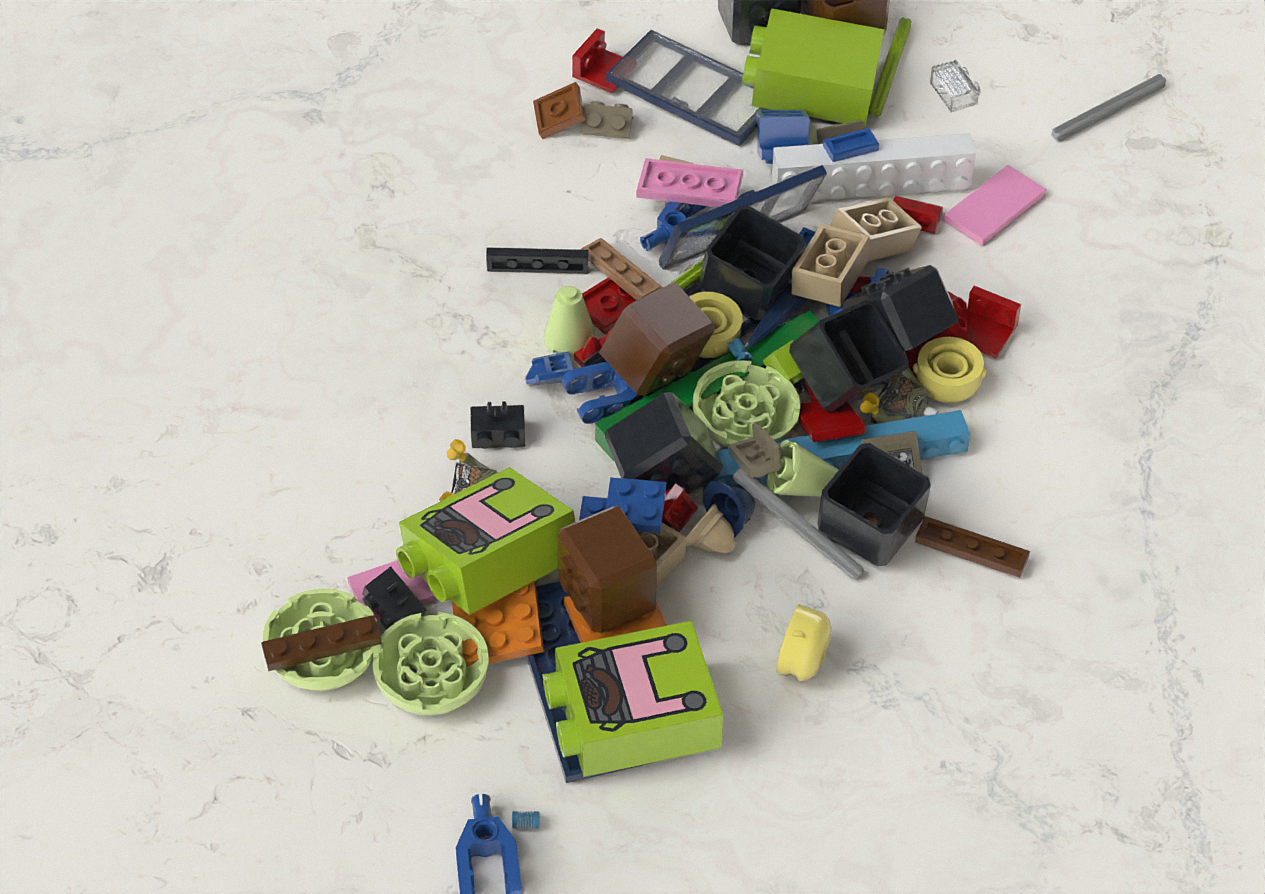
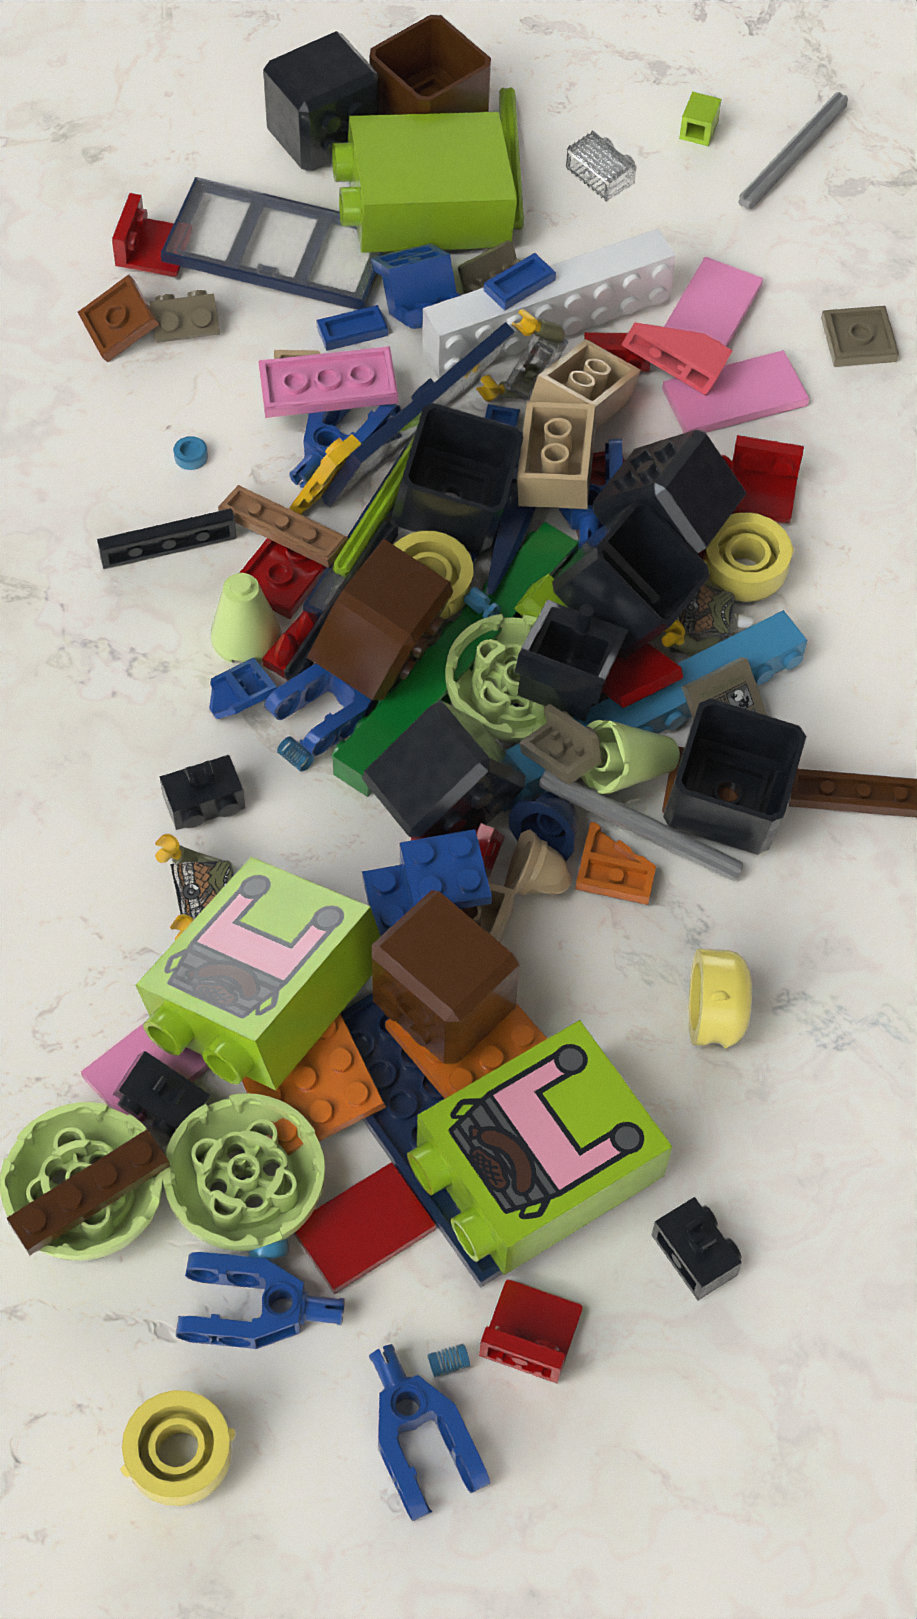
camera: 20 degrees left, 10 degrees up
(319, 796) = (169, 1415): none -> light yellow piece
(412, 763) = (270, 1326): none -> blue piece
(430, 718) = (272, 1250): none -> dark azure tile
(500, 724) = (364, 1227): none -> red tile
(570, 418) = (293, 744): none -> dark azure piece
(577, 210) = (190, 453): none -> dark azure tile
(587, 817) = (531, 1331): none -> red bracket
(655, 245) = (330, 465): none -> yellow wing
(726, 155) = (352, 327): none -> blue tile
(726, 799) = (697, 1247): none -> black brick
(768, 548) = (614, 869): none -> orange wing
(780, 395) = (568, 658): none -> black piece
(851, 192) = (540, 353): none -> torso
(957, 223) = (681, 353): none -> coral slope
(992, 262) = (739, 394): none -> bright pink tile
(1044, 69) = (700, 118): none -> lime brick
(1105, 245) = (859, 336): none -> dark tan tile

